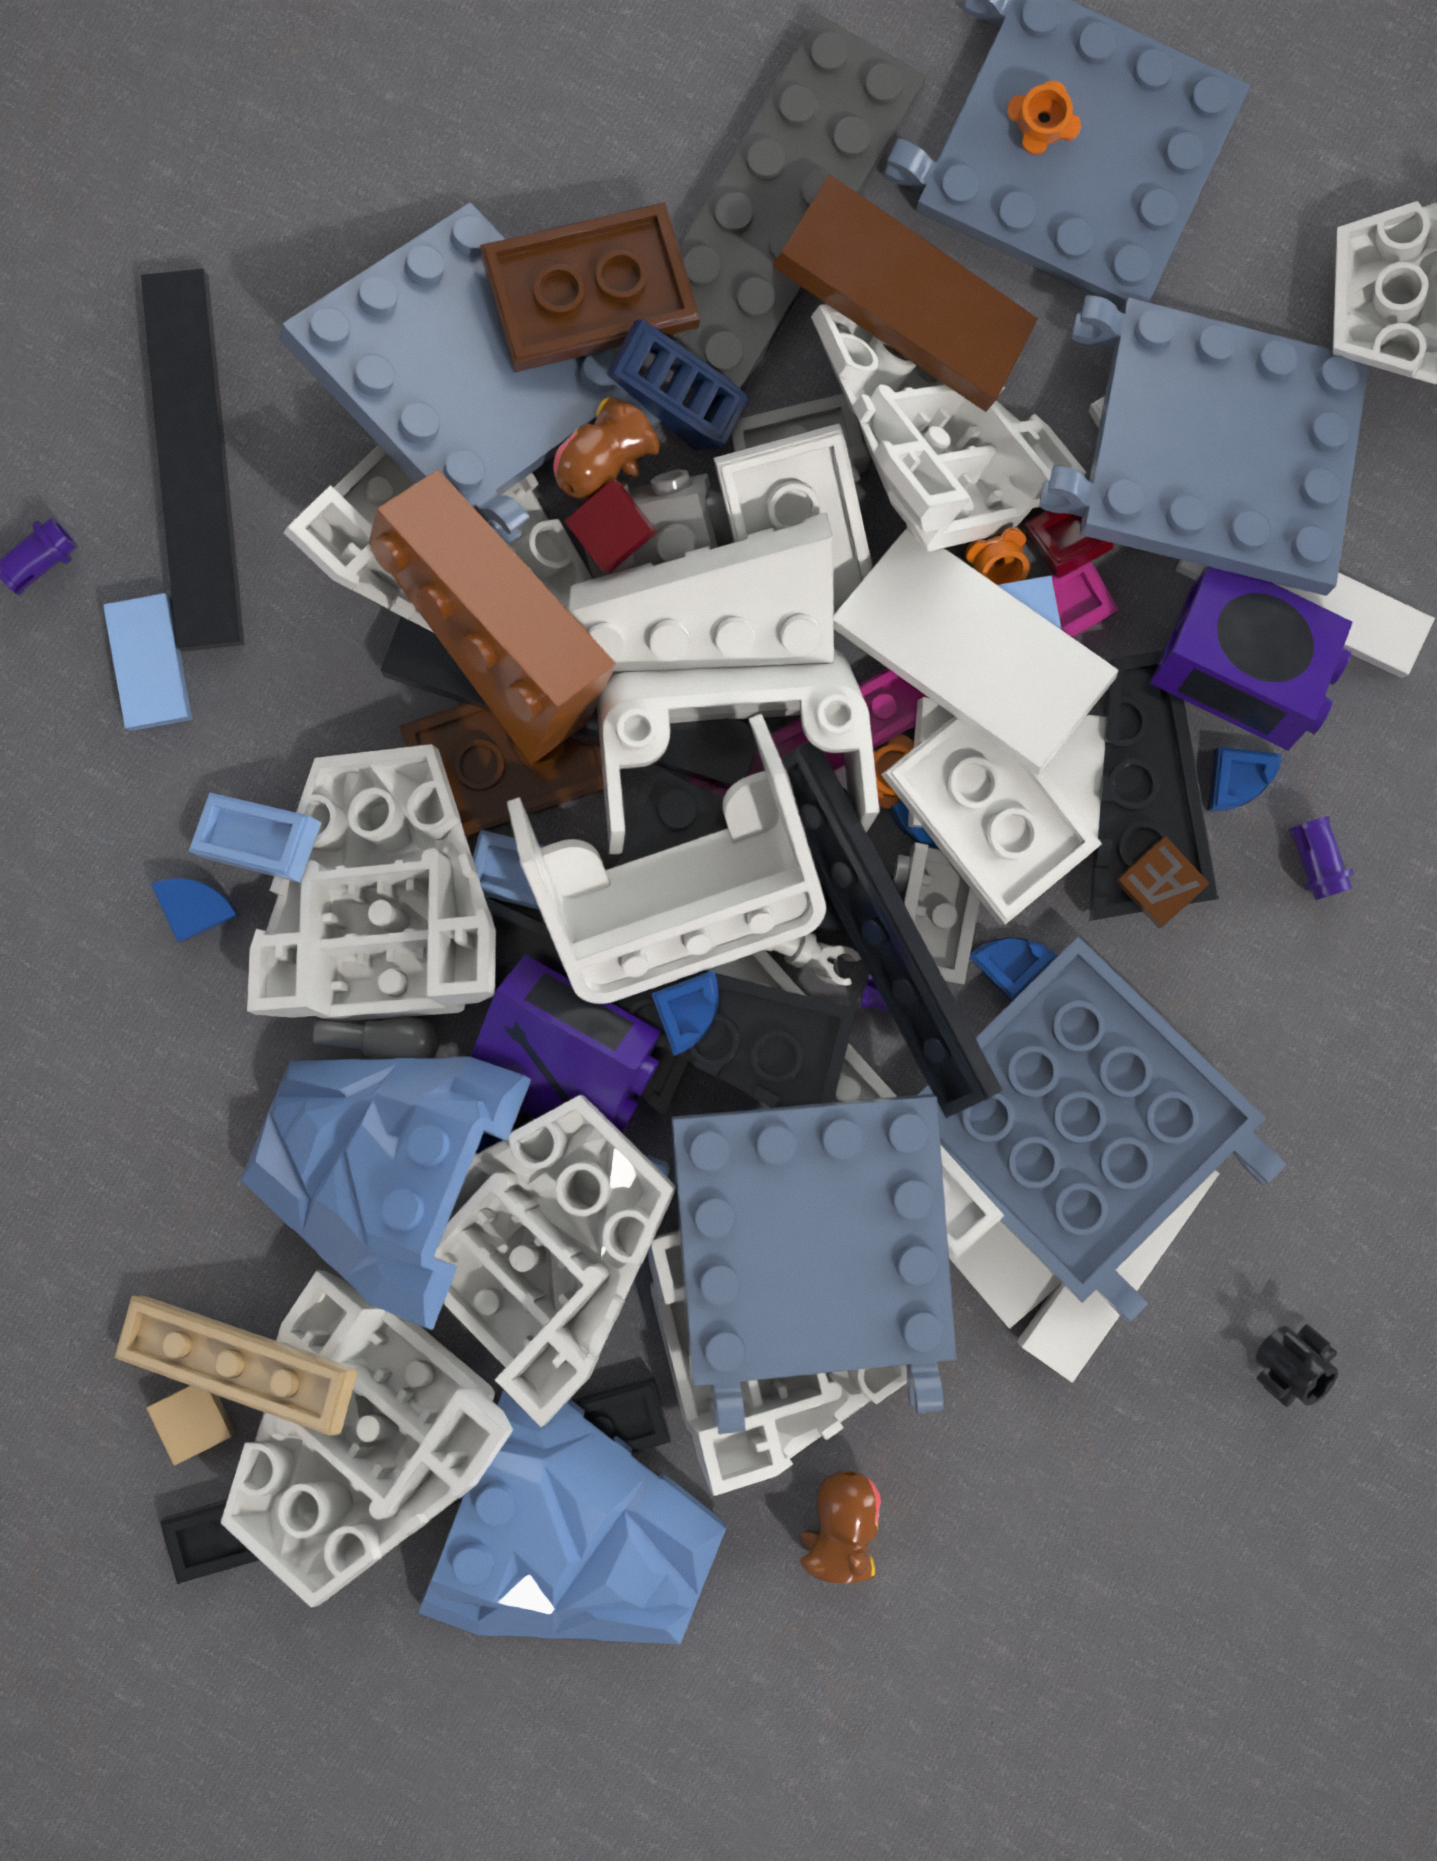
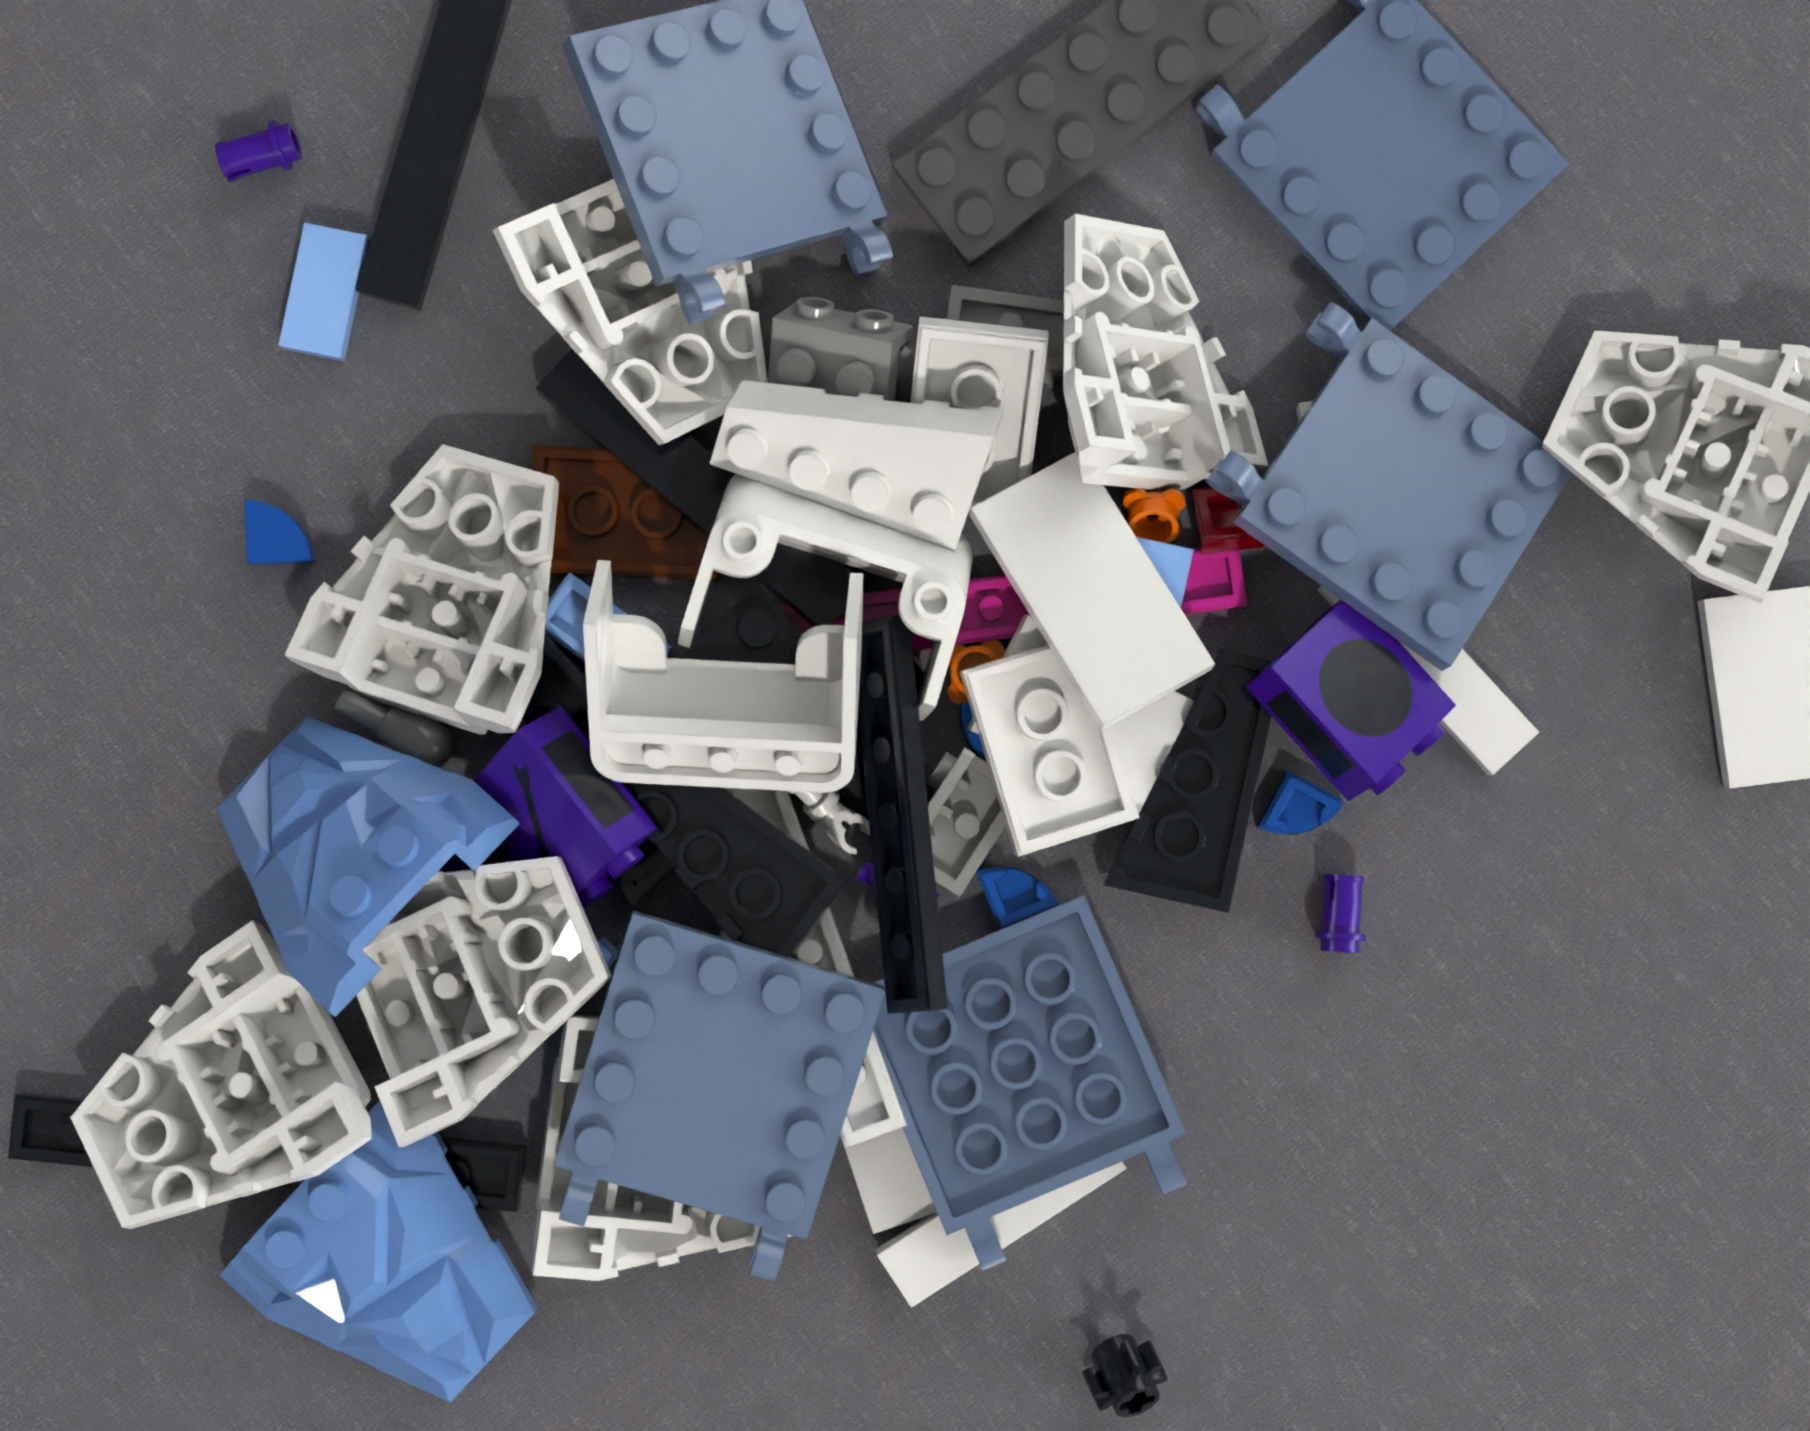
camera: 20 degrees right, 0 degrees up
(190, 1422) = (81, 1012): tan tile -> none
(237, 1364) = (143, 977): tan tile -> none
(255, 837) = (357, 496): light blue tile -> none
(491, 615) = (653, 381): wedge -> none
(586, 285) = (872, 109): reddish brown tile -> none
(600, 450) = (815, 267): dark orange animal -> none
(611, 526) = (800, 341): dark red tile -> none
(688, 1010) = (689, 818): blue tile -> none
(715, 399) = (943, 264): dark blue slope -> none
(848, 1521) = (649, 1352): dark orange animal -> none
(906, 293) = (1164, 232): reddish brown tile -> none
(1048, 99) = (1374, 105): orange plate -> none
(1162, 882) = (1180, 876): reddish brown tile -> none

